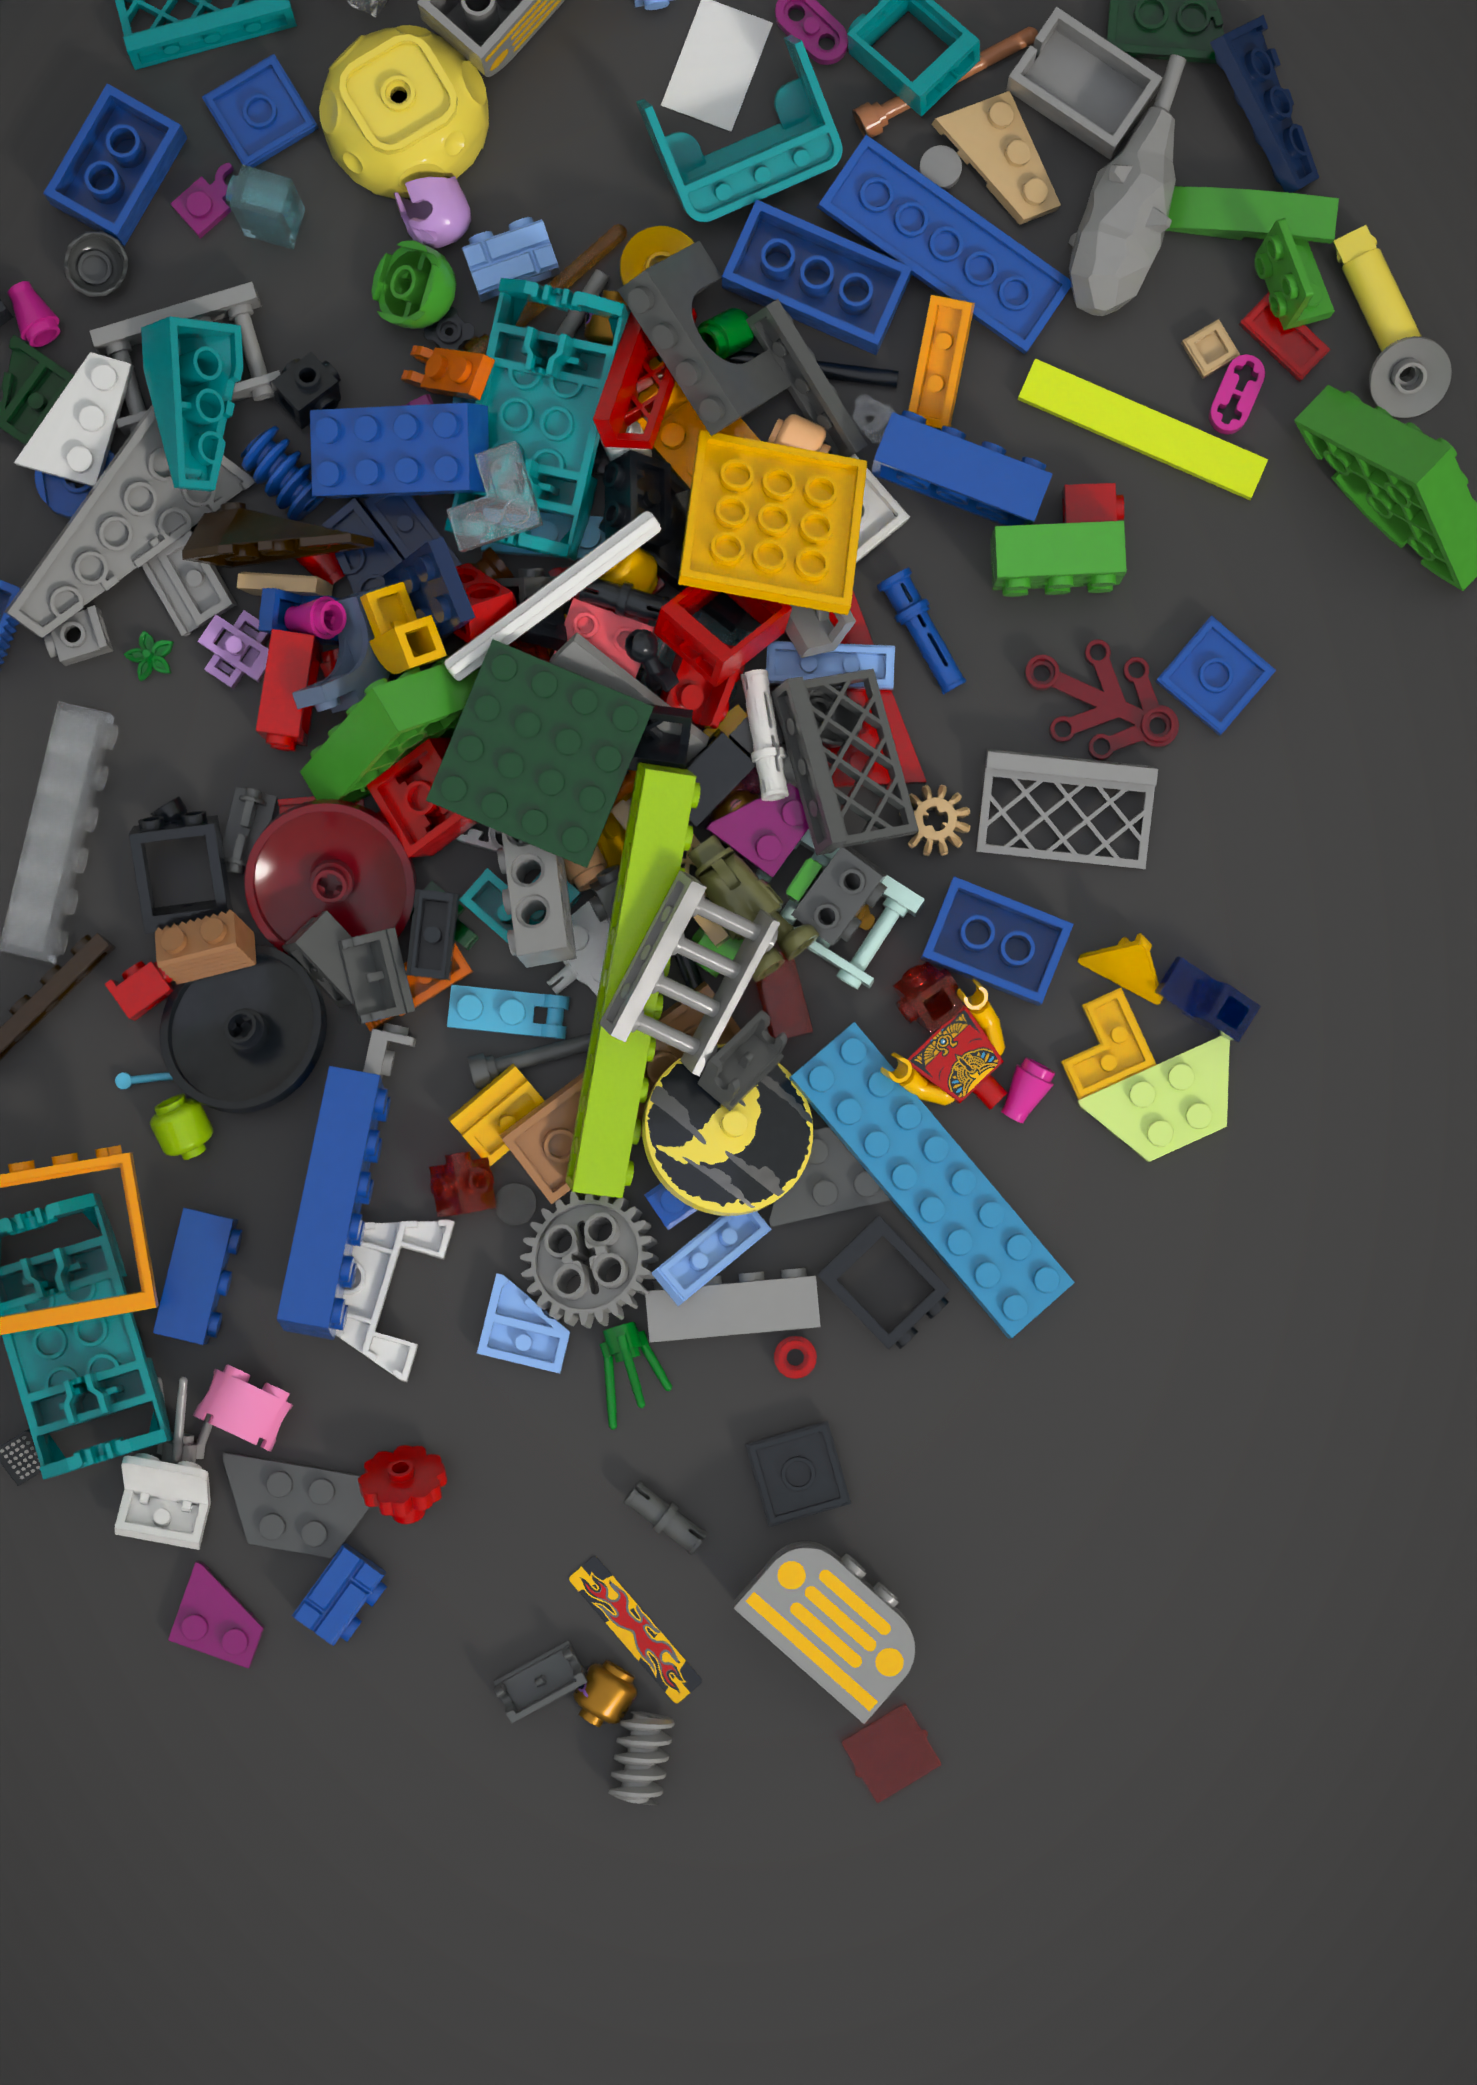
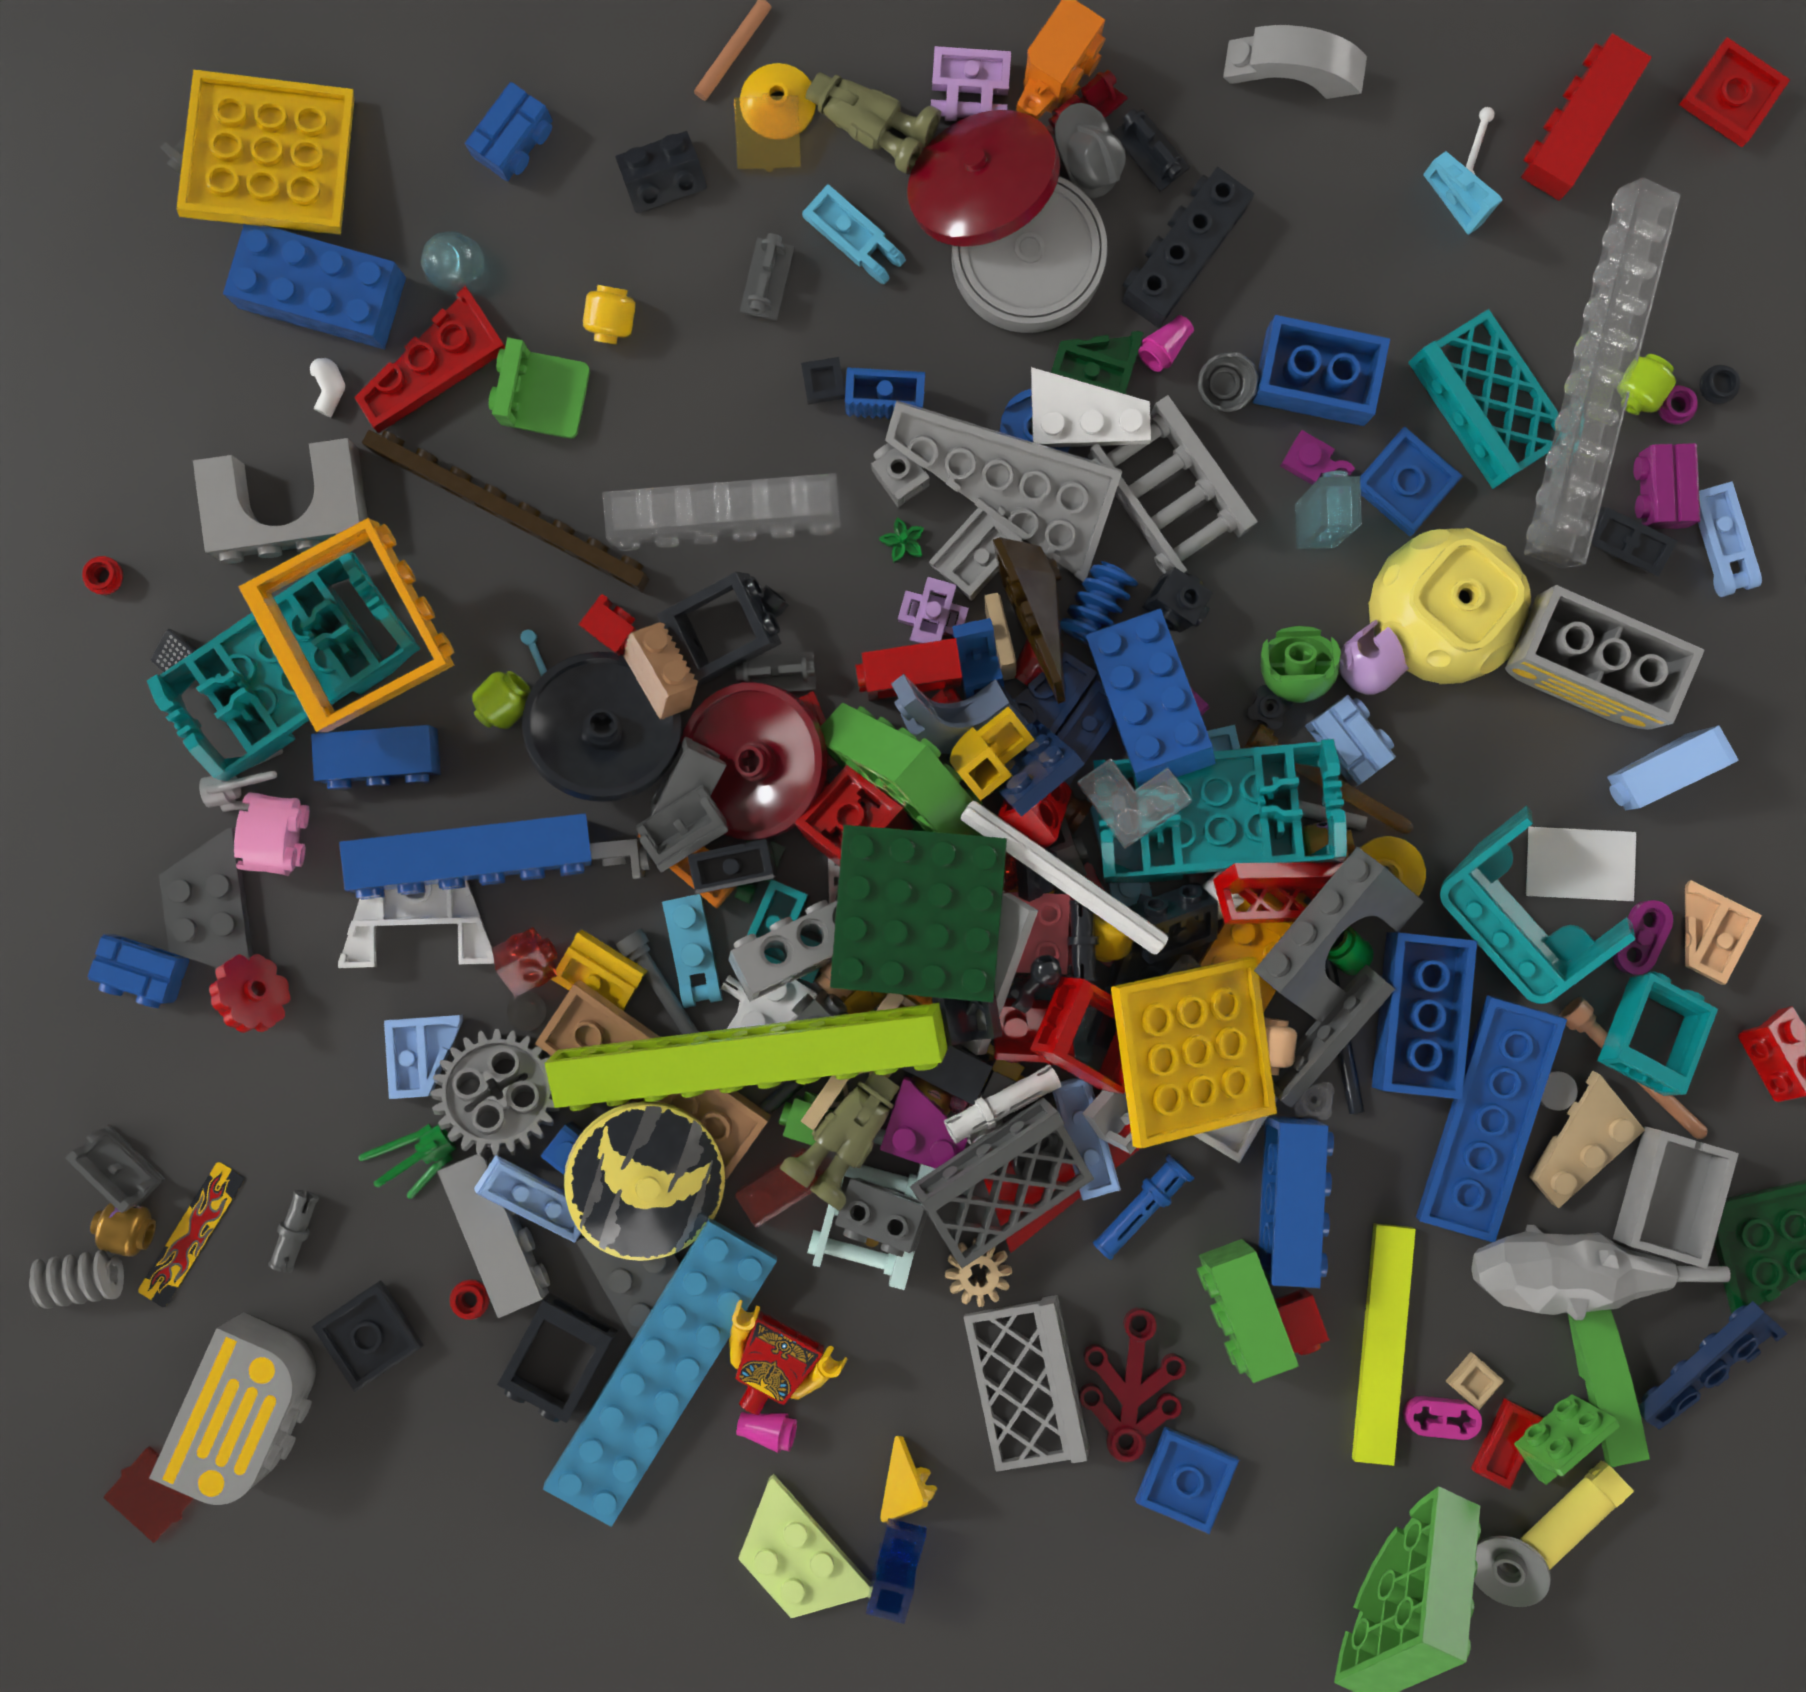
camera: 65 degrees right, 0 degrees up
(163, 1501) = (166, 791): white bracket -> none
(191, 387) = (1150, 497): teal wedge -> none
(215, 1621) = (85, 867): magenta wing -> none
(319, 617) = (979, 675): dark pink cone -> none
(450, 372) = (1234, 721): orange hinge -> none
(667, 938) = (772, 1075): light grey fence -> none
(743, 1062) = (705, 1178): dark grey hinge -> none
(804, 880) = (885, 1178): bright green tile -> none
(928, 996) = (820, 1319): clear red brick -> none
(941, 360) = (1388, 1148): light orange plate -> none
(997, 941) = (888, 1364): blue brick -> none
(1120, 1049) = (825, 1498): yellow tile -> none

